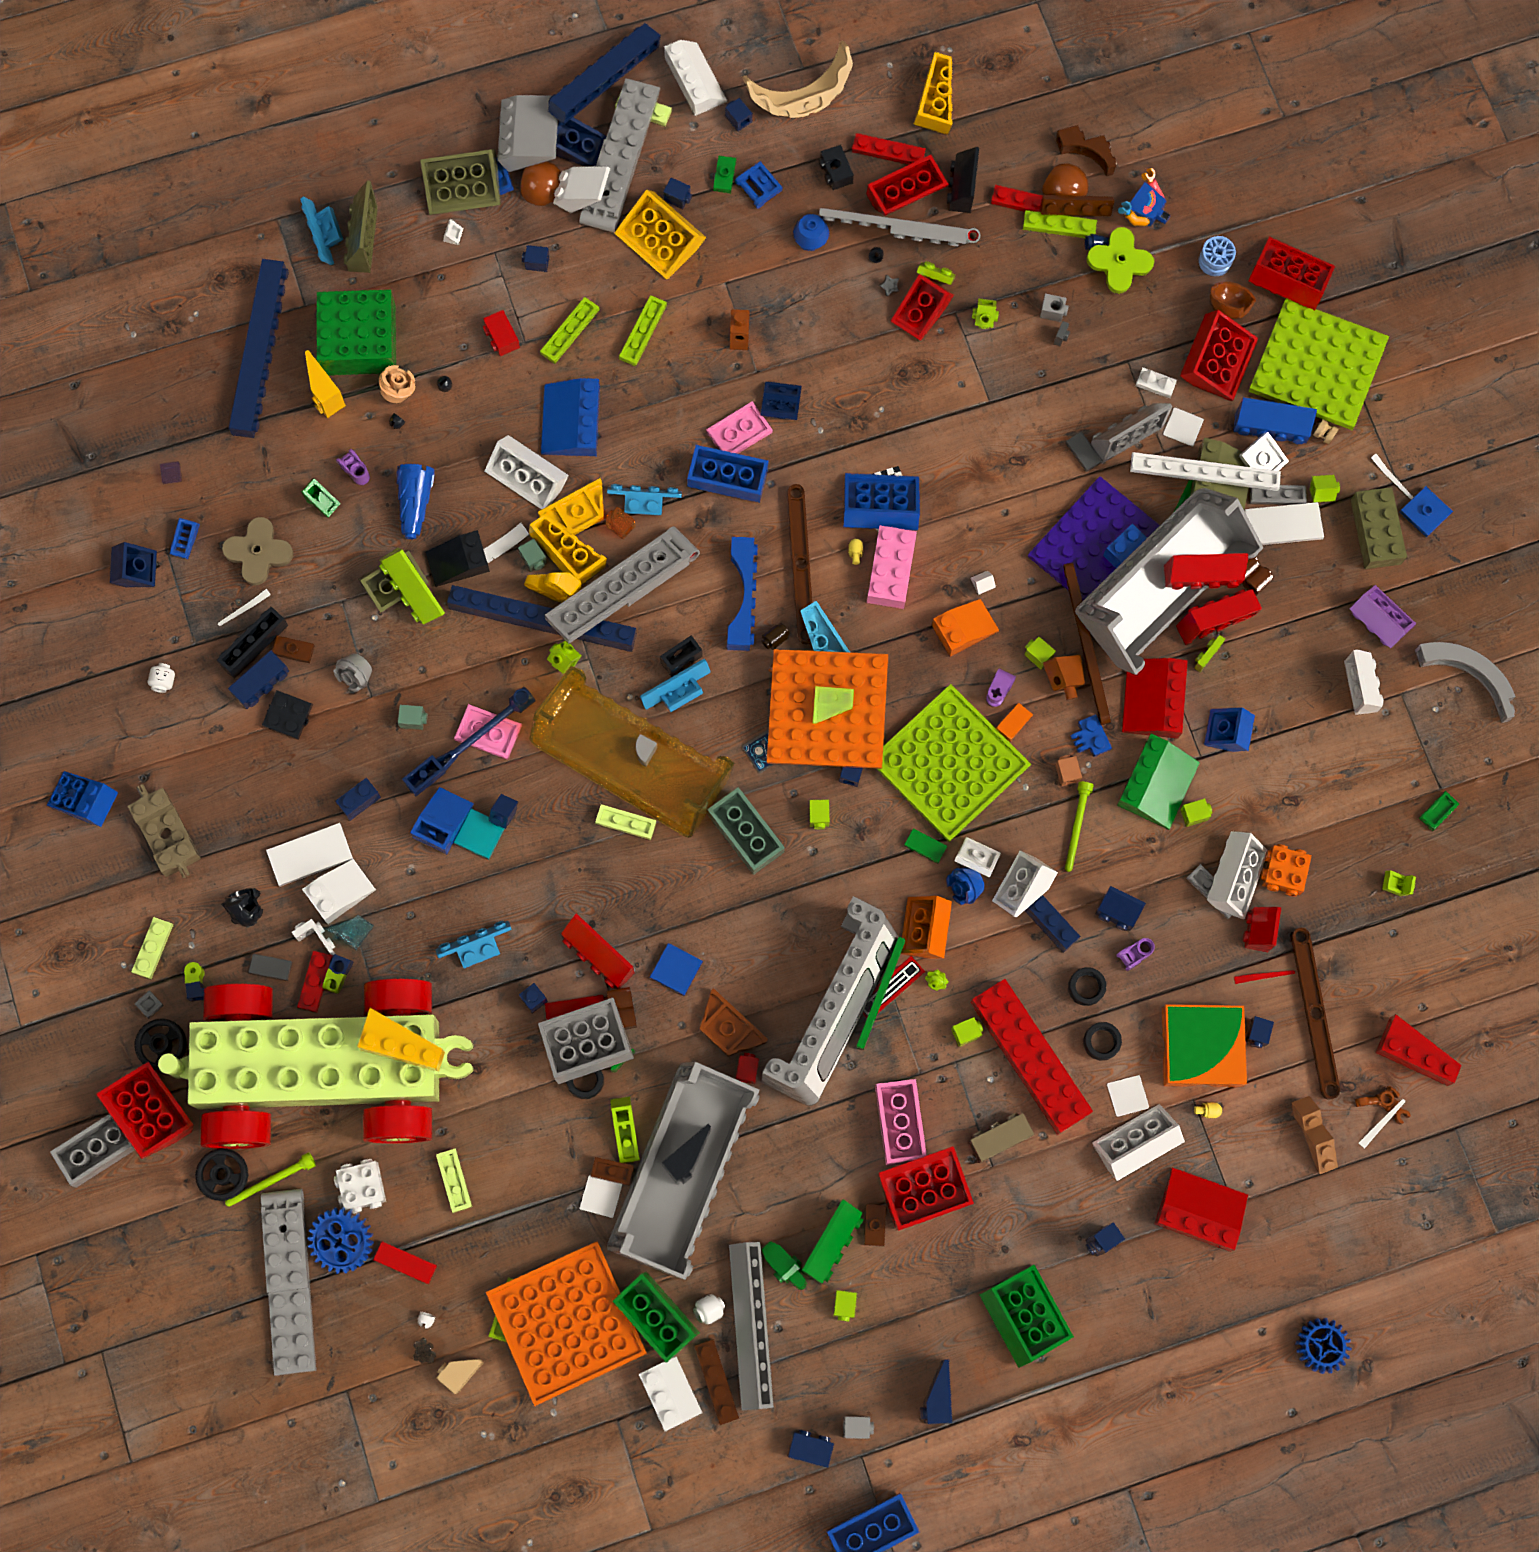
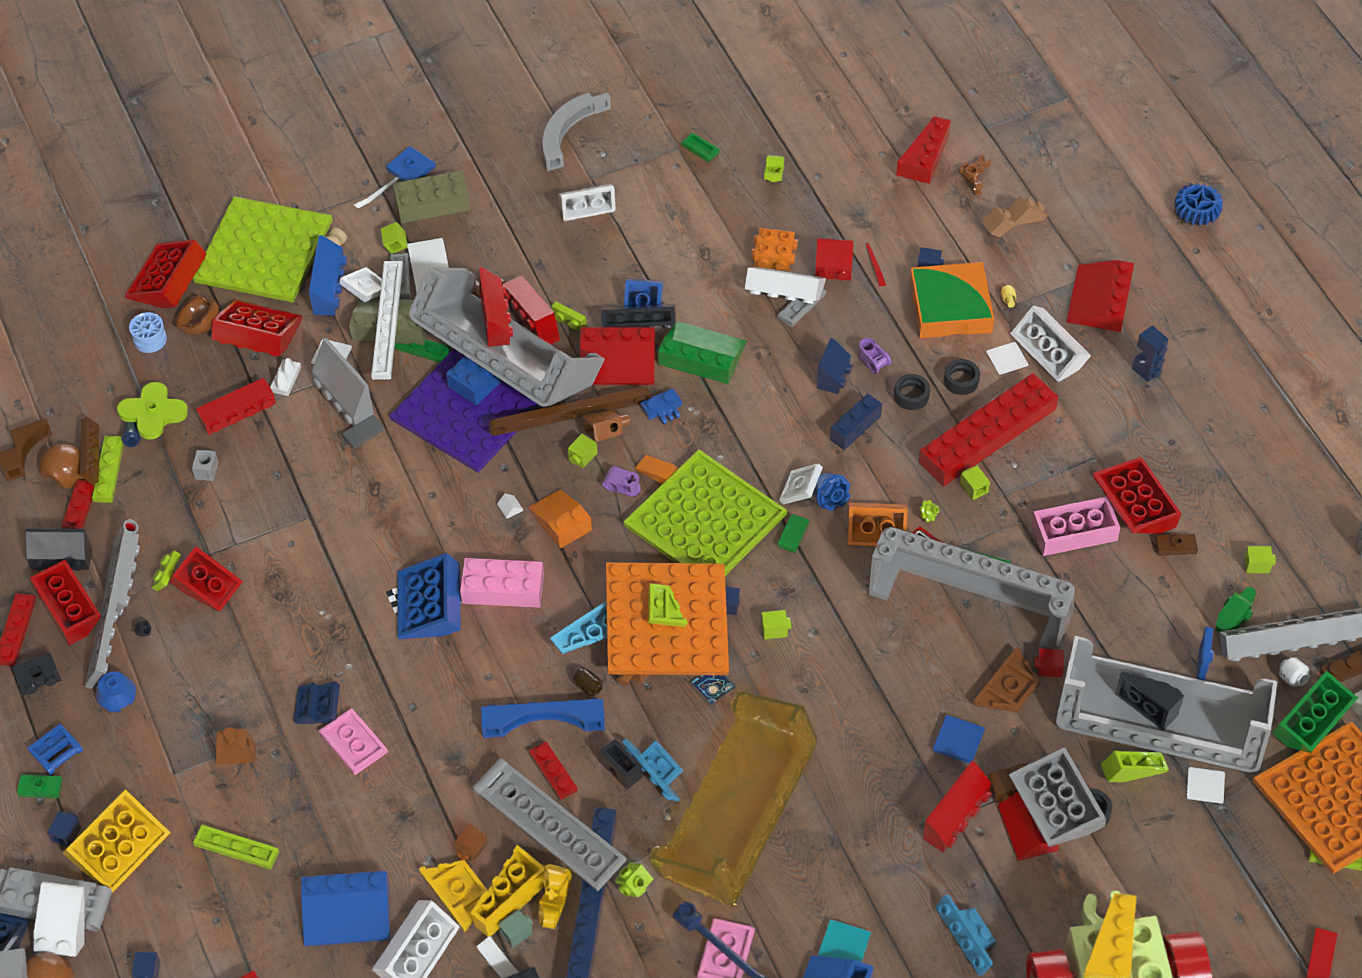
camera: 90 degrees left, 20 degrees down
(454, 1180) = (1225, 921): yellowish green plate -> none
(503, 811) = (817, 919): dark blue brick -> none
(533, 998) = (1016, 866): dark blue brick -> none
(569, 330) = (237, 923): lime plate -> none
(612, 1171) = (1180, 773): reddish brown plate -> none
(625, 822) = (810, 802): yellowish green plate -> none
(644, 501) = (440, 823): dark azure bracket -> none
(645, 749) = (729, 789): light grey brick -> none
(688, 600) = (553, 771): none -> red plate
(727, 473) = (407, 741): blue brick -> none
(733, 1221) = (1205, 654): none -> blue plate
(745, 831) = (809, 679): sand green brick -> none
(799, 551) = (488, 669): reddish brown beam -> none
(832, 1241) = (1201, 574): green slope -> none
(855, 550) = (484, 619): light yellow cylinder -> none
(889, 285) = (179, 613): dark grey piece -> none
(937, 1402) = (1323, 473): dark blue slope -> none
(985, 313) = (213, 520): lime brick -> none
(1000, 1137) = (1070, 448): dark tan brick -> none
(1024, 884) = (824, 443): white slope -> none
(1026, 1316) = (1232, 417): green slope -> none
(1062, 334) = (234, 456): dark grey plate -> none
(1068, 770) = (701, 419): nougat brick -> none
(1084, 789) = (719, 407): lime piece -> none
(1121, 336) = (236, 406): none -> red brick
(1146, 204) = (87, 393): torso -> none
(1196, 812) = (729, 318): lime brick -> none
(1201, 720) = (639, 316): none -> black brick
(1317, 1027) = (915, 222): reddish brown beam -> none
(1367, 1139) = (995, 176): white sticker -> none
(1382, 616) = (520, 191): medium lavender slope -> none

